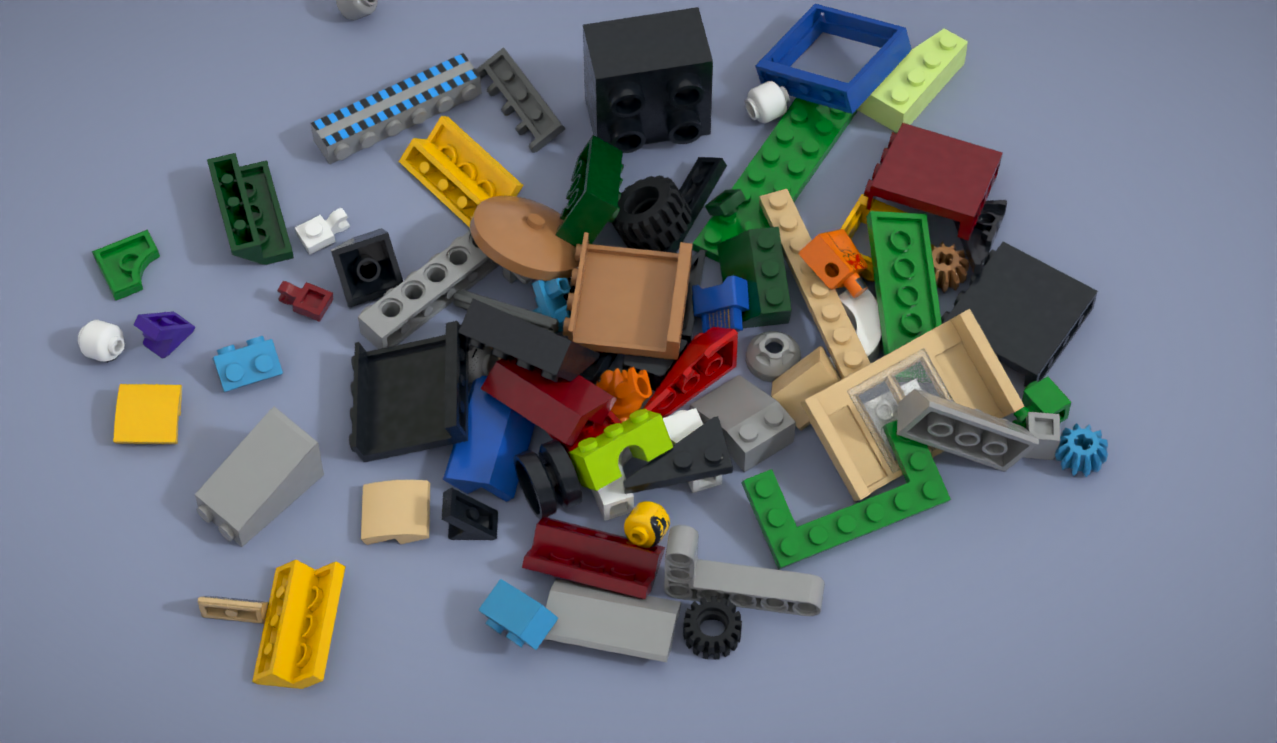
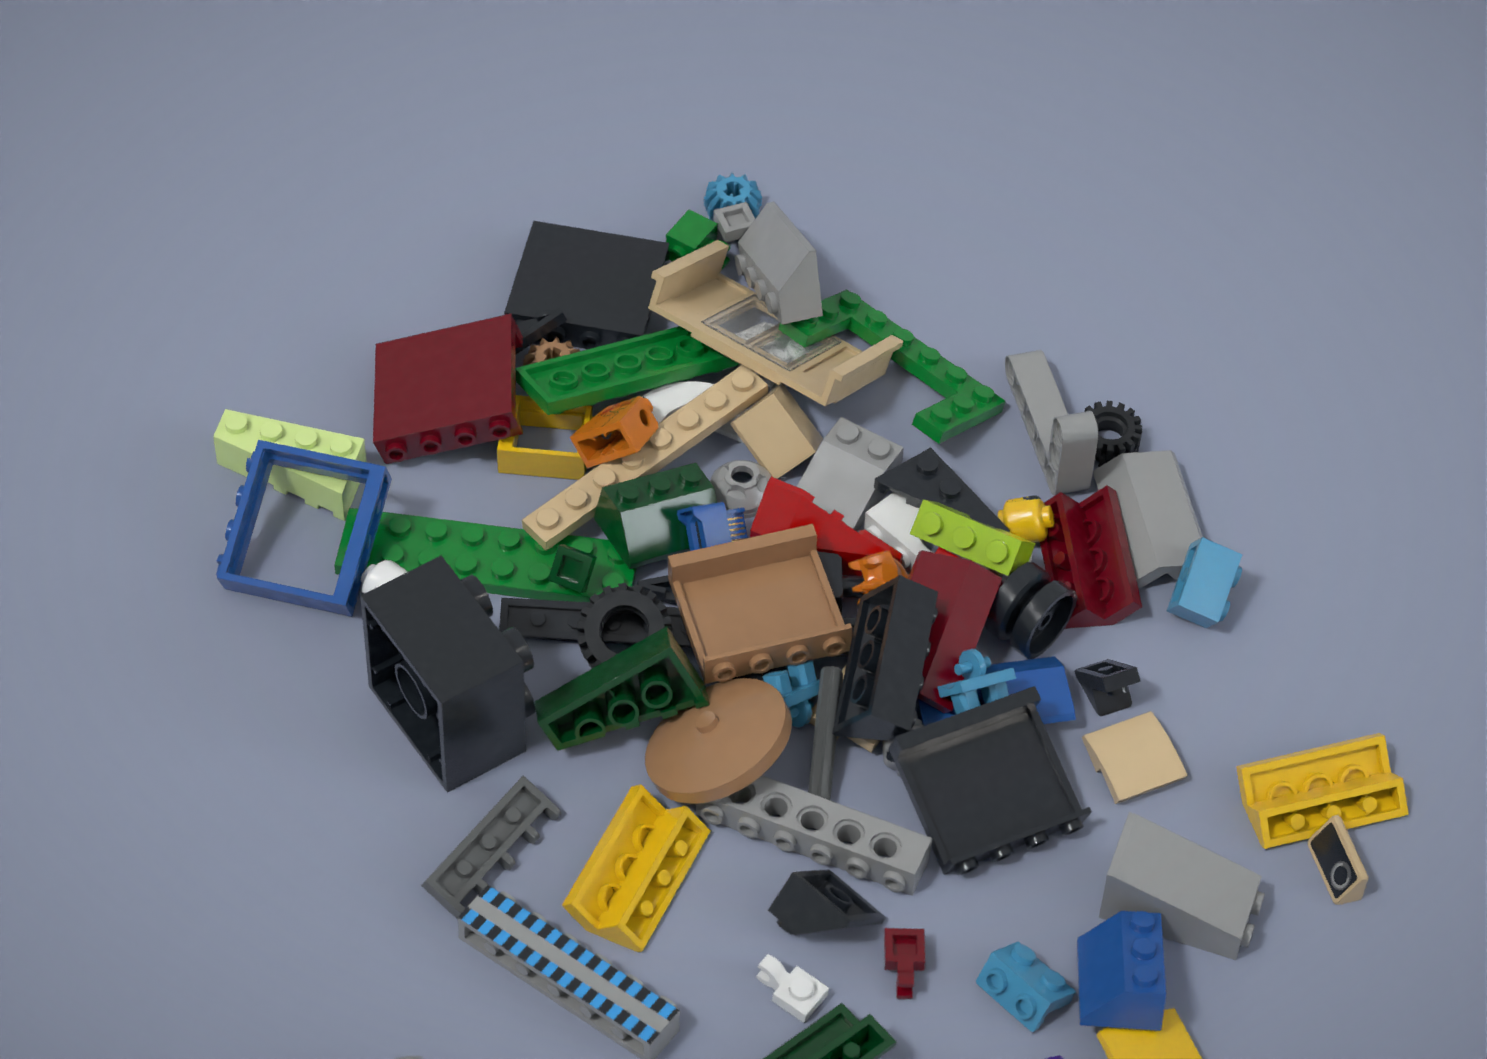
camera: 115 degrees left, 5 degrees down
(208, 412) = (1122, 972): none -> blue slope
(488, 401) = (973, 669): none -> dark azure hips

